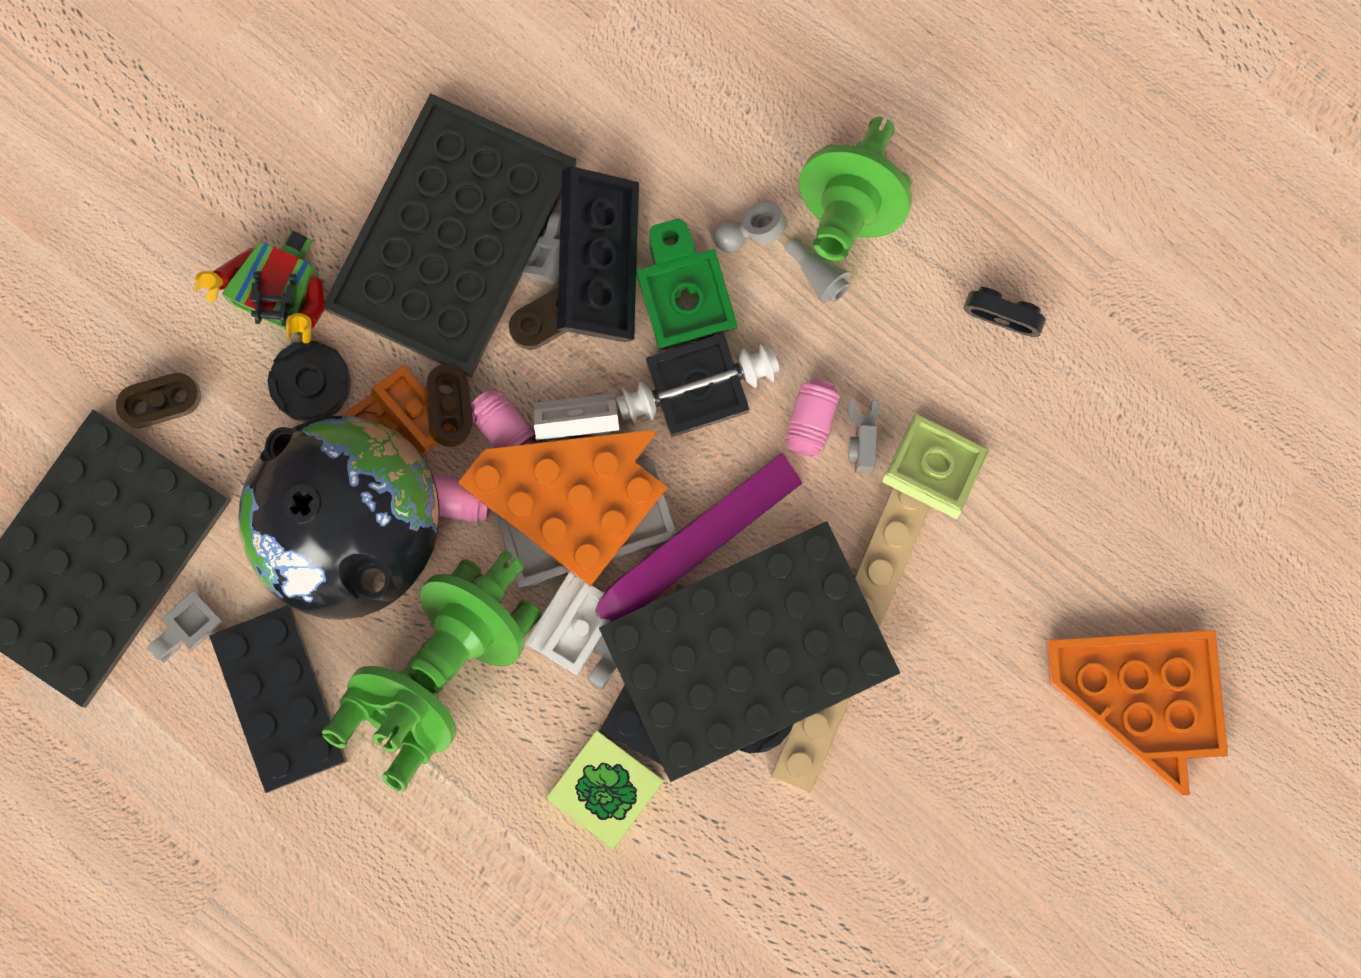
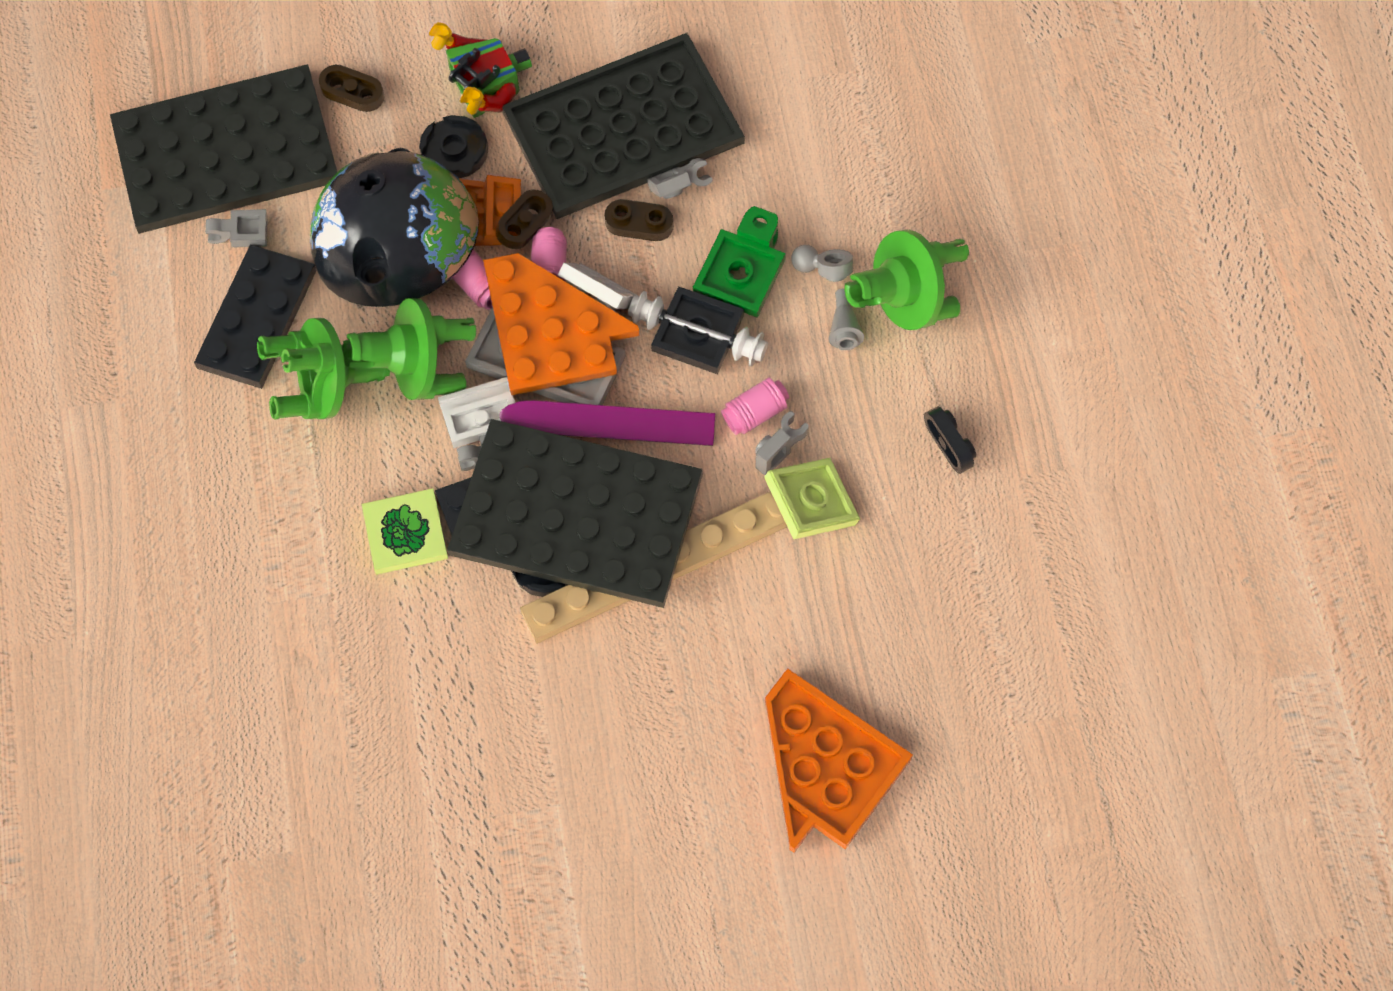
camera: 45 degrees right, 15 degrees down
(597, 255) = (703, 200): black plate -> none

